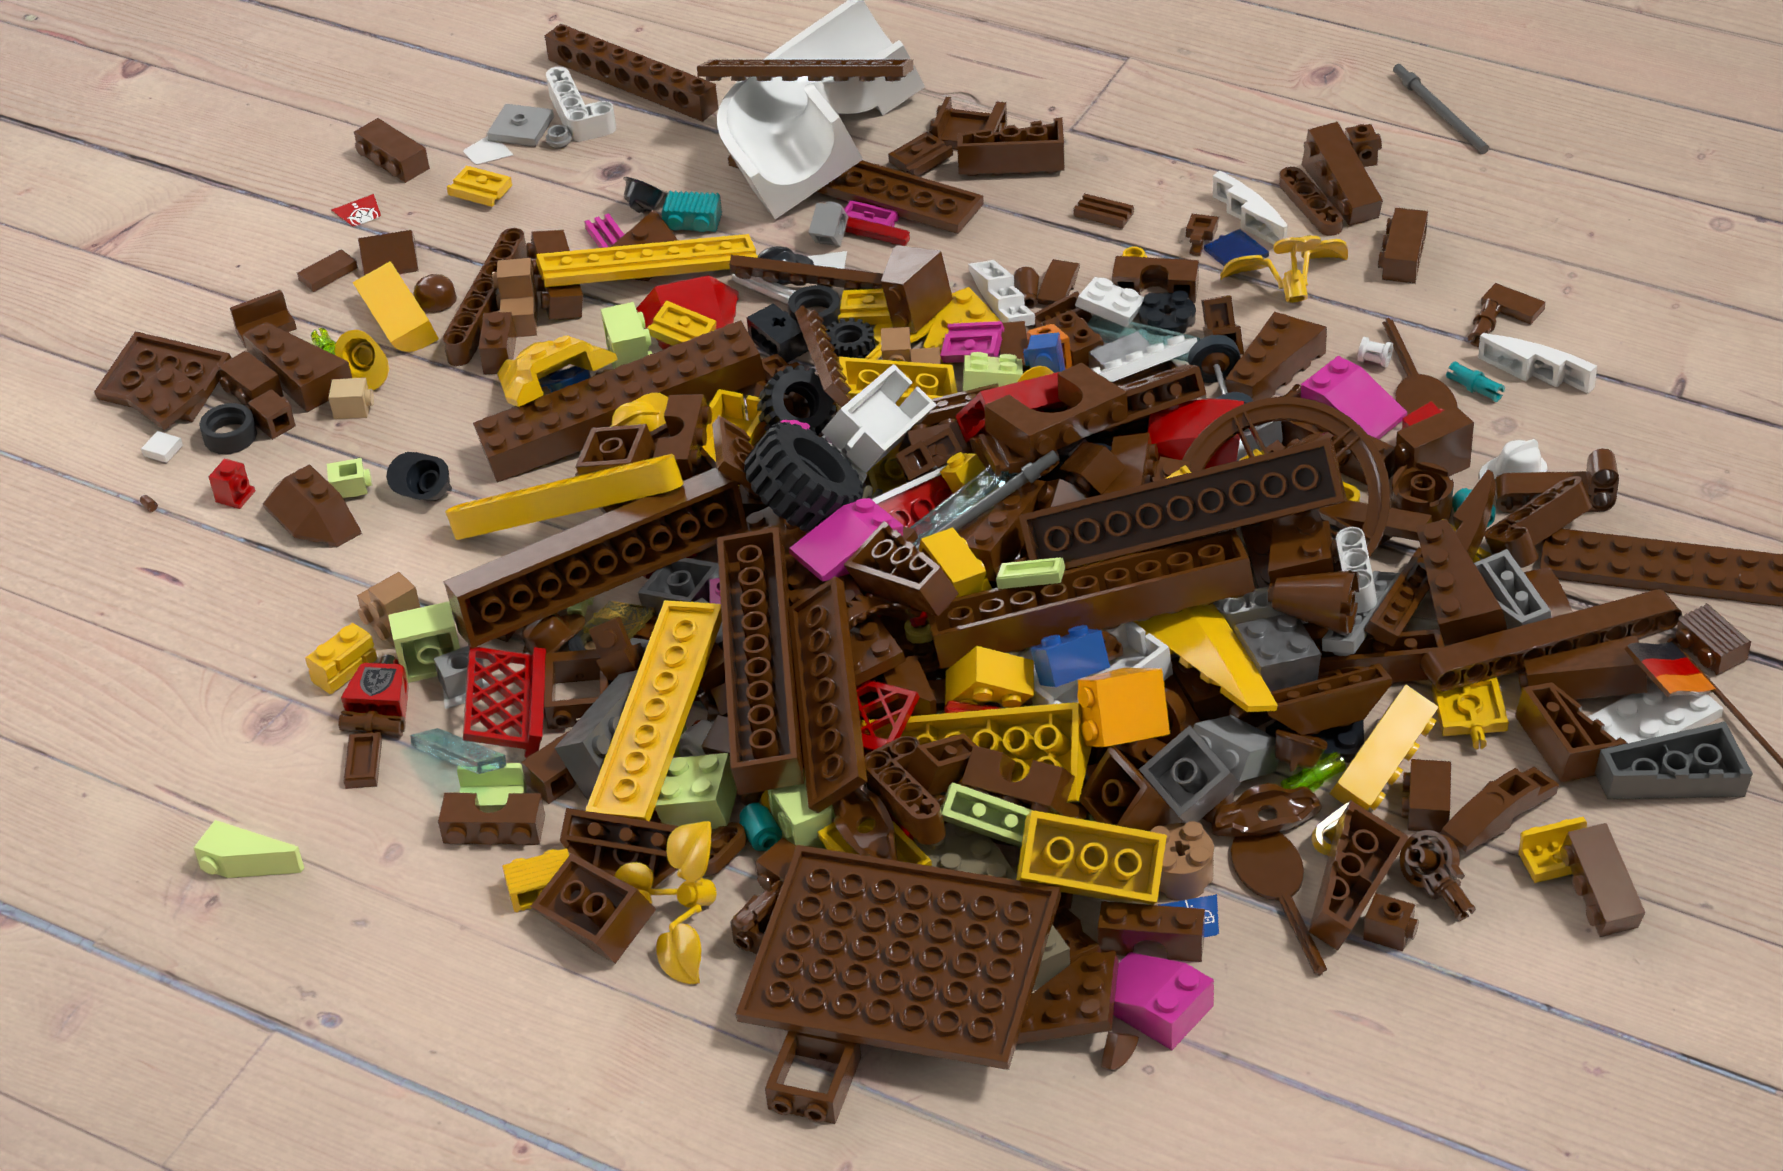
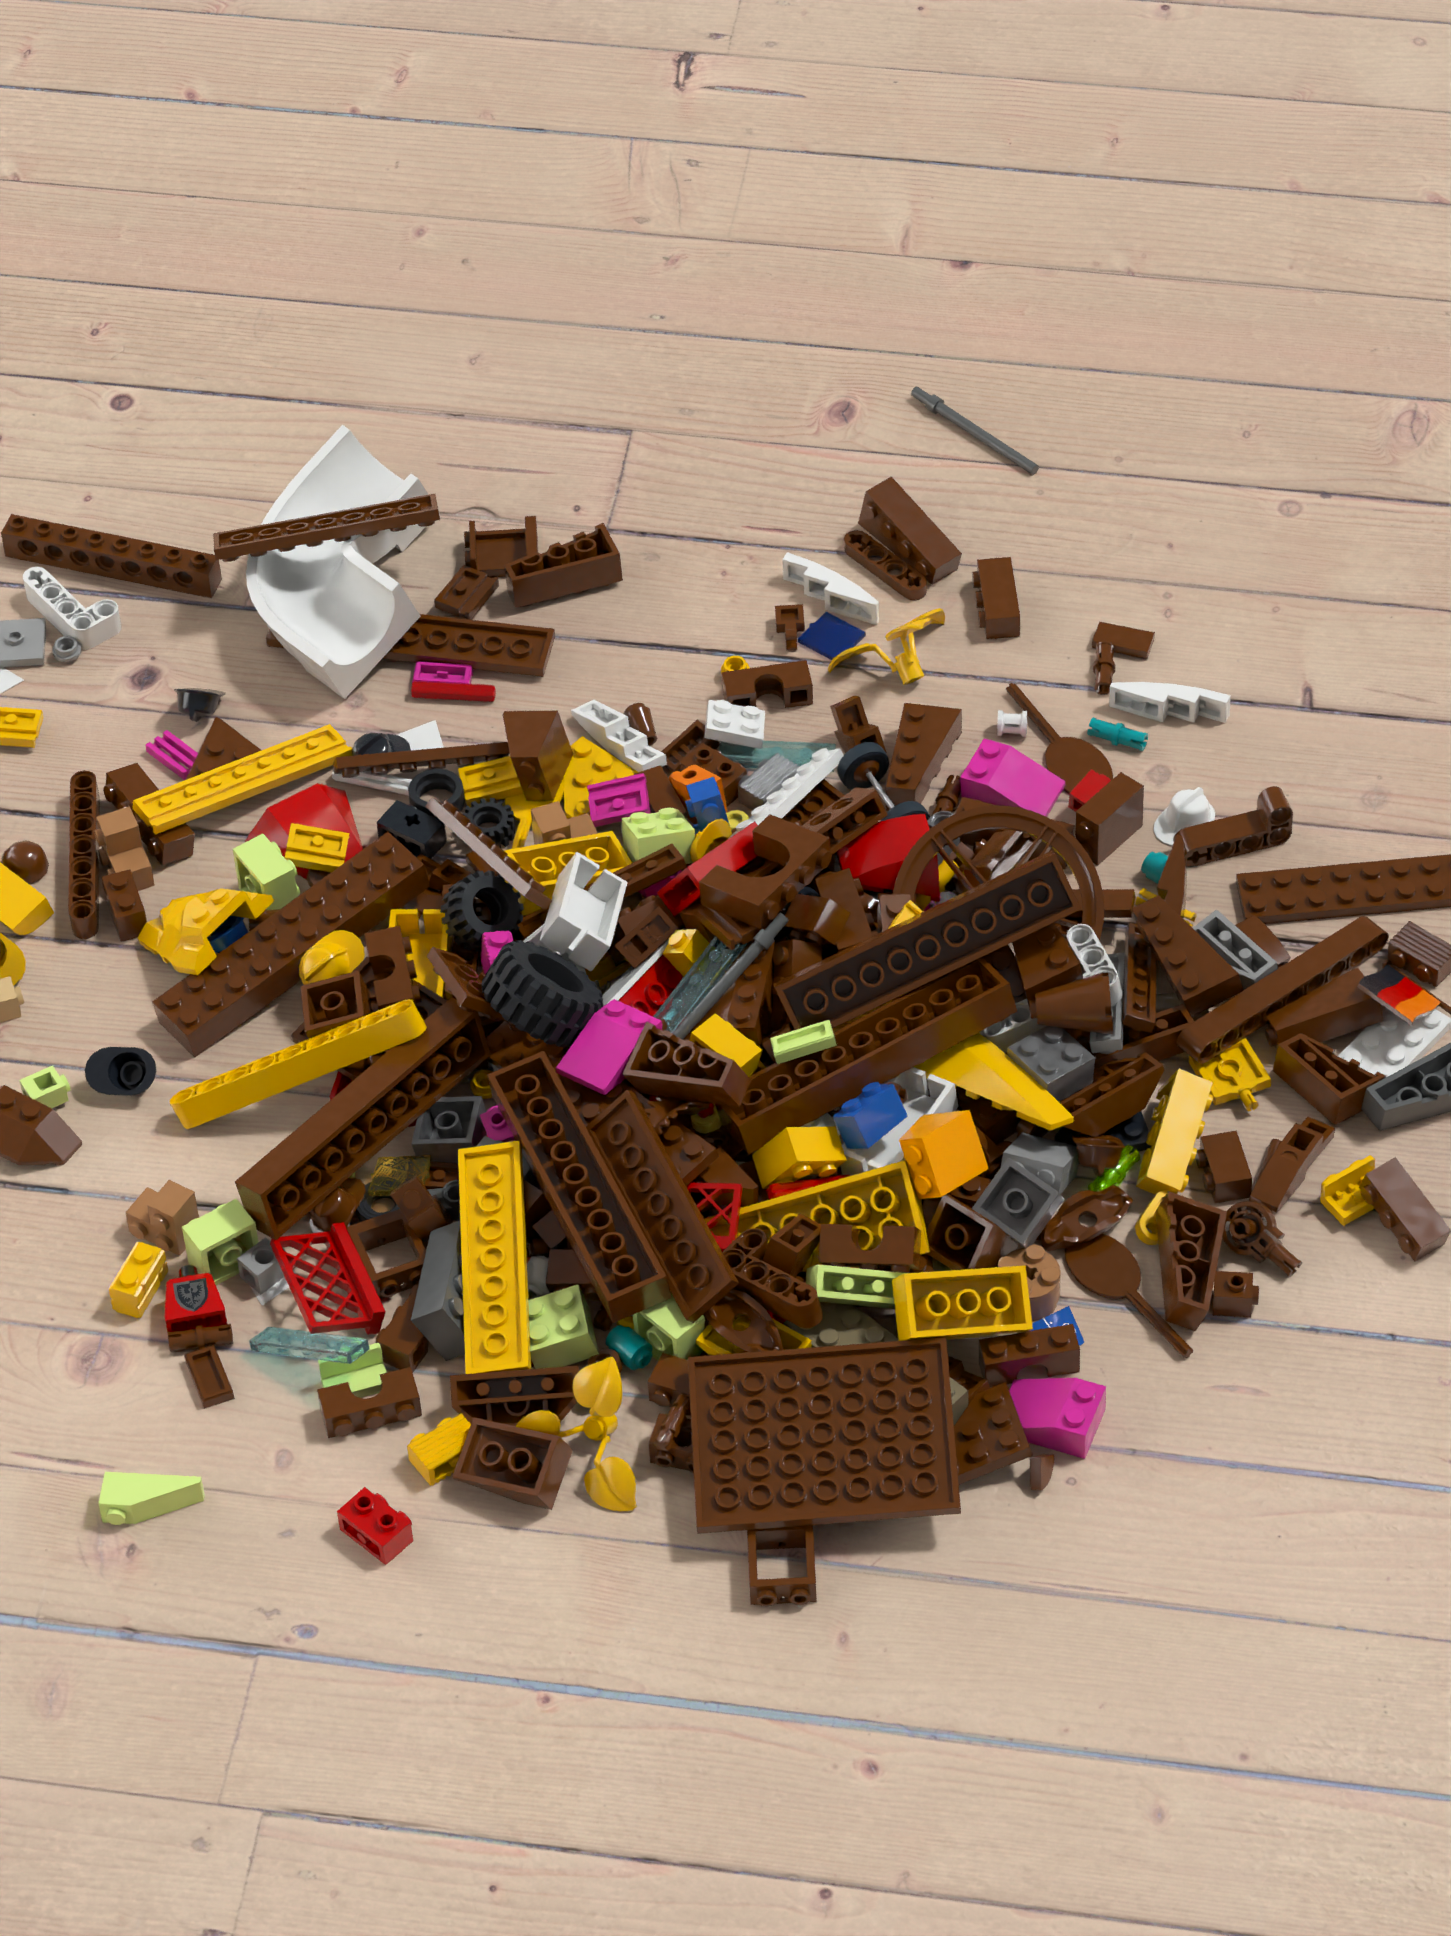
camera: 20 degrees left, 5 degrees up
(440, 935) = (375, 1525): none -> red brick
(692, 211) = (256, 709): teal brick -> none
(828, 223) = (410, 695): light grey brick -> none
(1058, 281) = (670, 711): reddish brown slope -> none
(1103, 210) = (677, 619): reddish brown tile -> none
(1156, 306) = (792, 710): black plate -> none
(1365, 143) = (919, 488): reddish brown brick -> none
(1423, 490) = (1118, 863): reddish brown brick -> none
(1538, 520) = (1230, 871): reddish brown beam -> none

